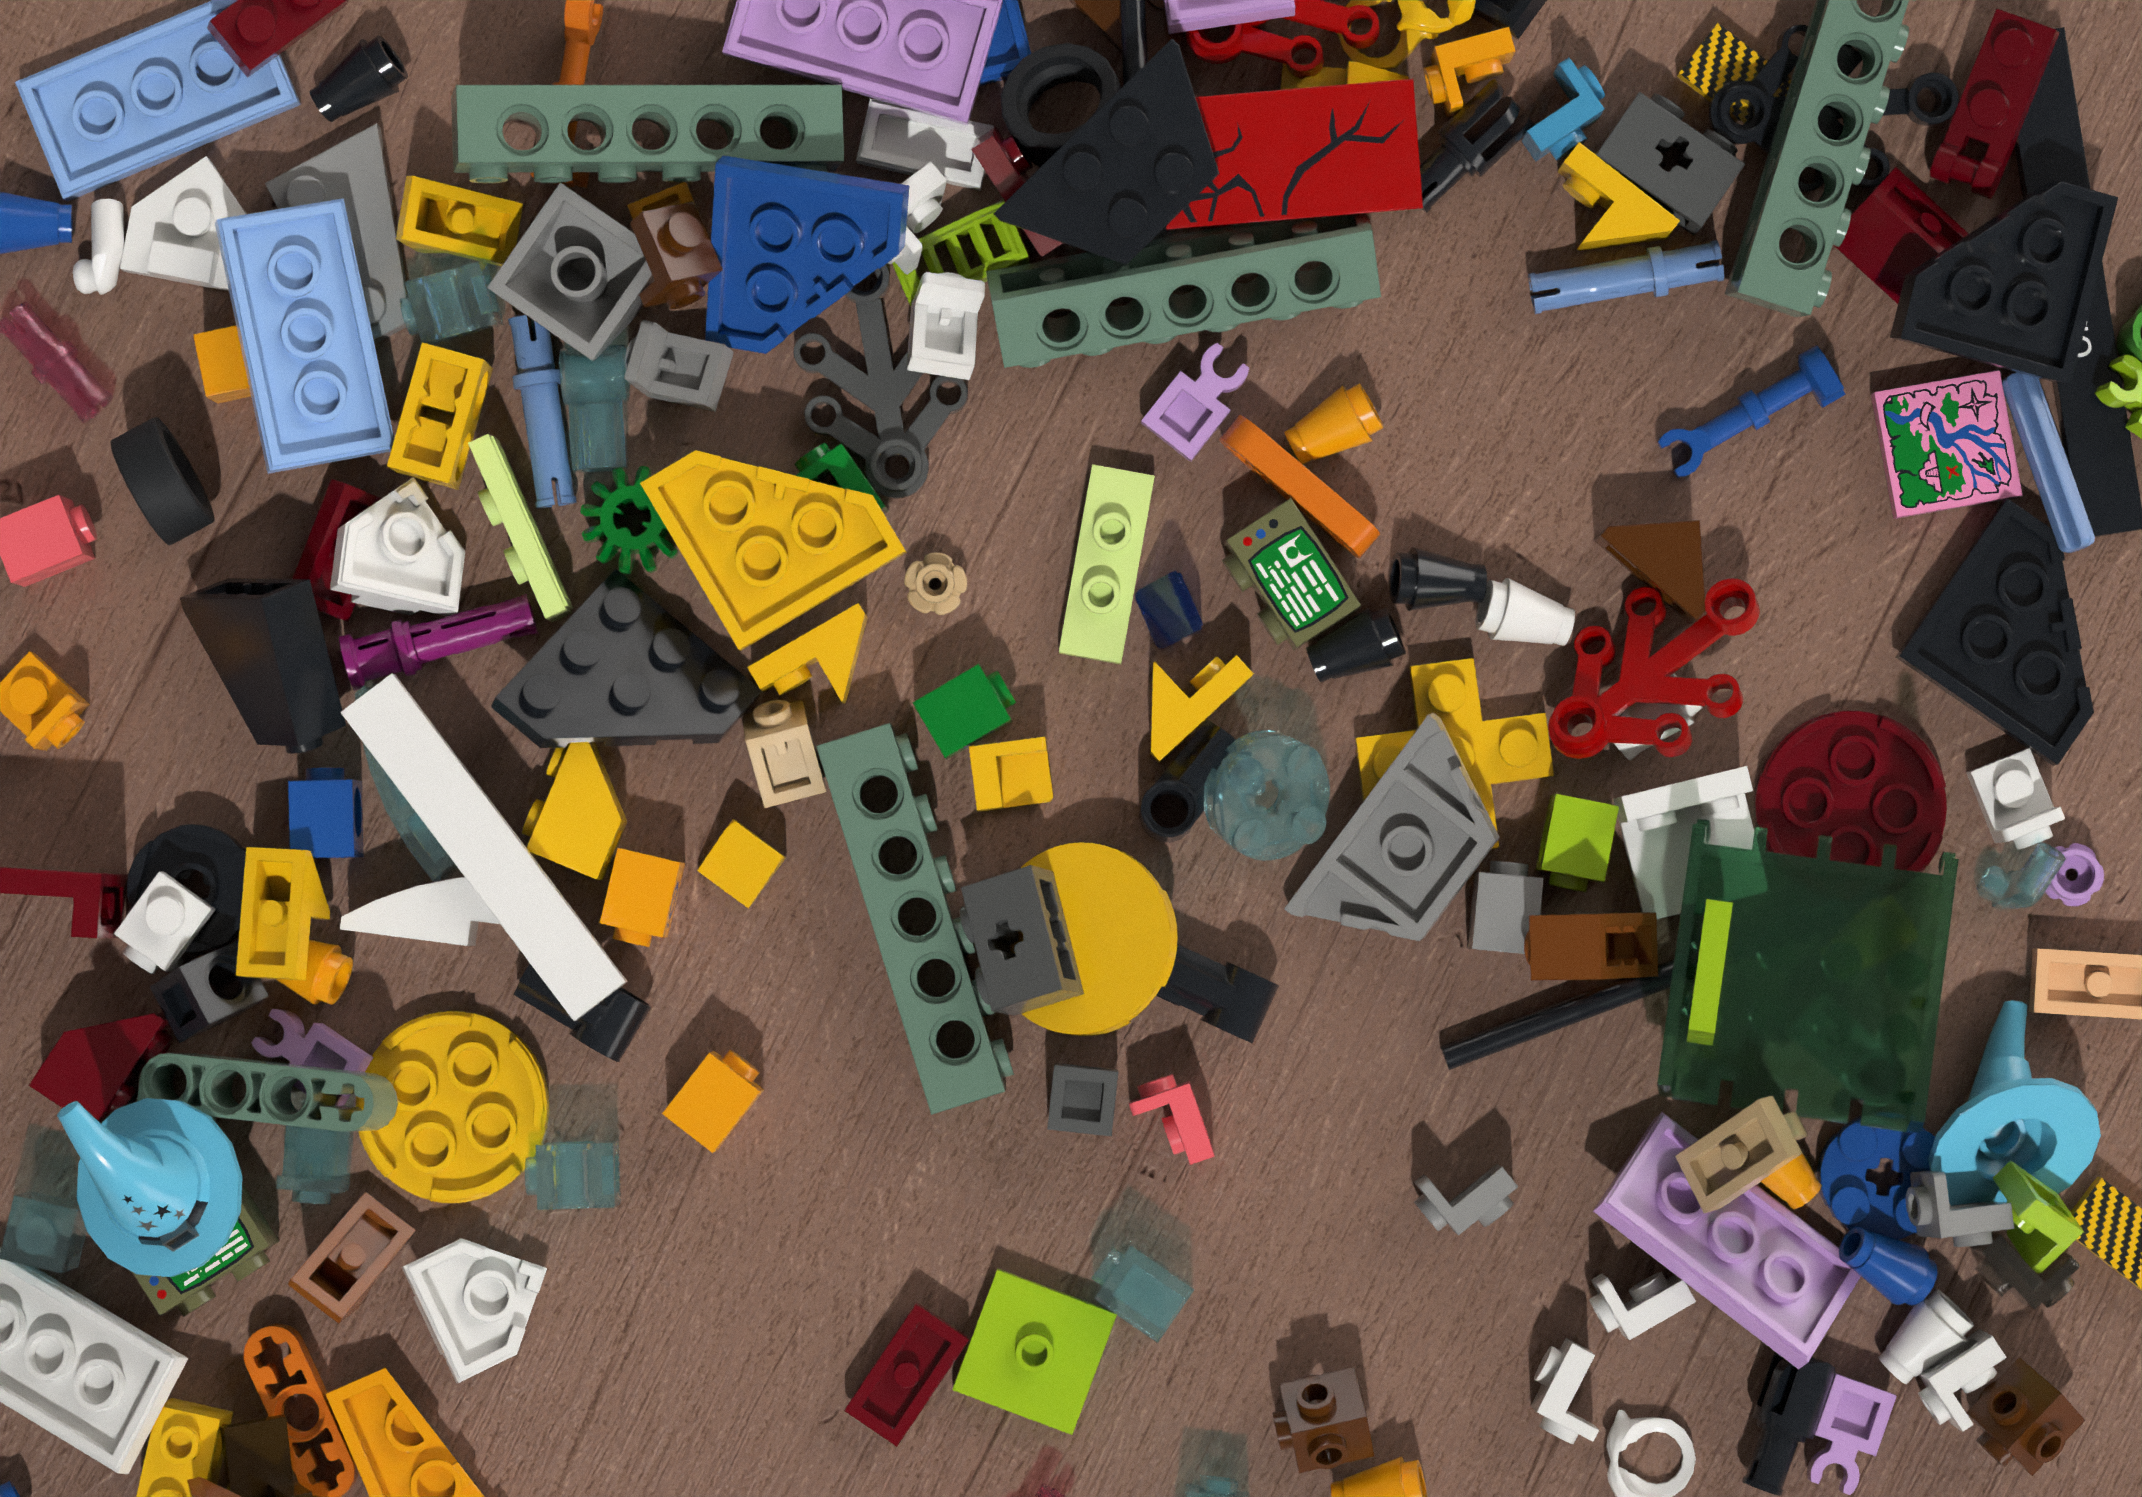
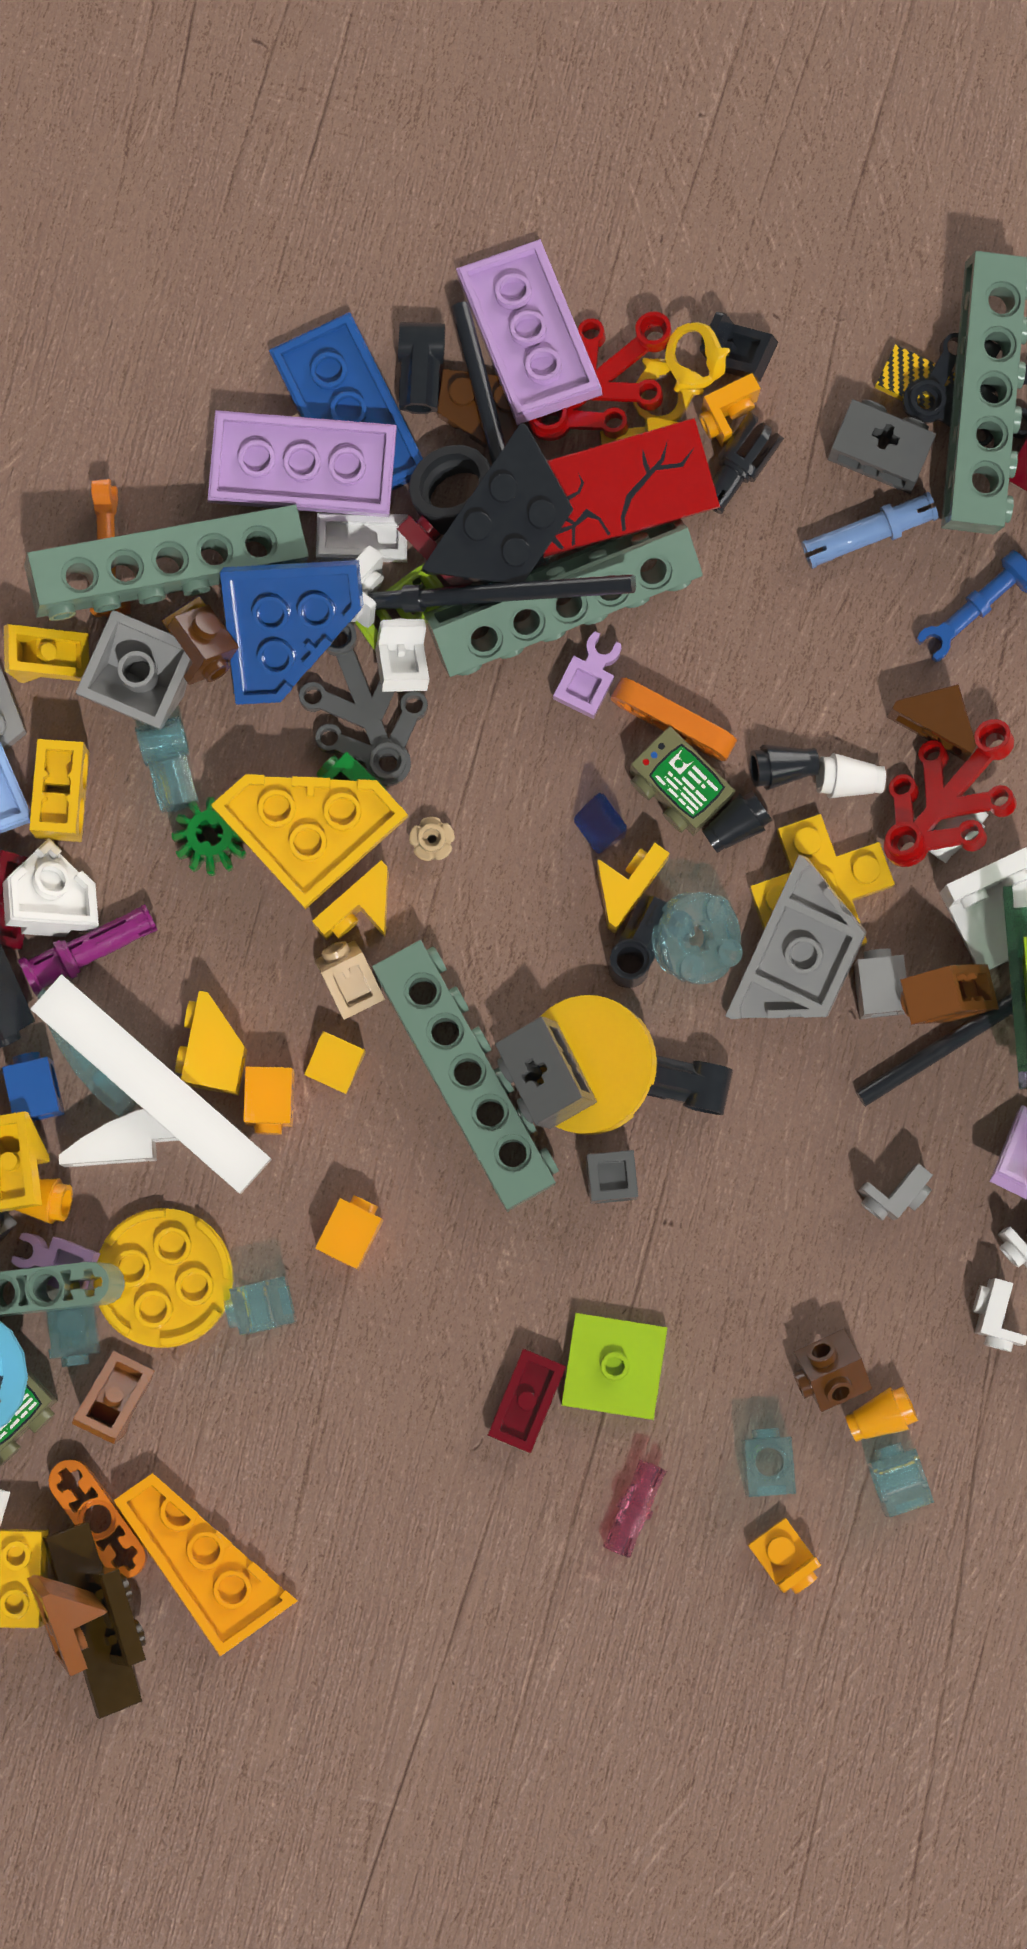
camera: 20 degrees left, 5 degrees down
(451, 304) = (52, 710): clear light blue brick -> none
(474, 1303) = (206, 1414): white plate -> none
(507, 505) = (116, 844): yellowish green plate -> none
(542, 412) = (130, 774): medium blue pin -> none
(604, 1028) = (261, 1197): black piece -> none
(625, 678) = (226, 947): black plate -> none
(677, 367) = (219, 724): light grey bracket -> none
(965, 710) = (471, 922): green brick -> none
(981, 250) = (417, 597): none -> black bar
(1011, 774) = (512, 960): yellow panel -> none
(1106, 564) = (549, 801): yellowish green plate -> none
(1141, 1290) = (681, 1305): clear light blue brick -> none
(1186, 1126) = (688, 1182): coral bracket -> none
(1335, 425) = (689, 672): light orange cone -> none
(1563, 128) = (804, 437): dark azure bracket -> none
(1576, 841) = (920, 926): lime brick -> none
(1630, 212) = (862, 484): yellow slope -> none

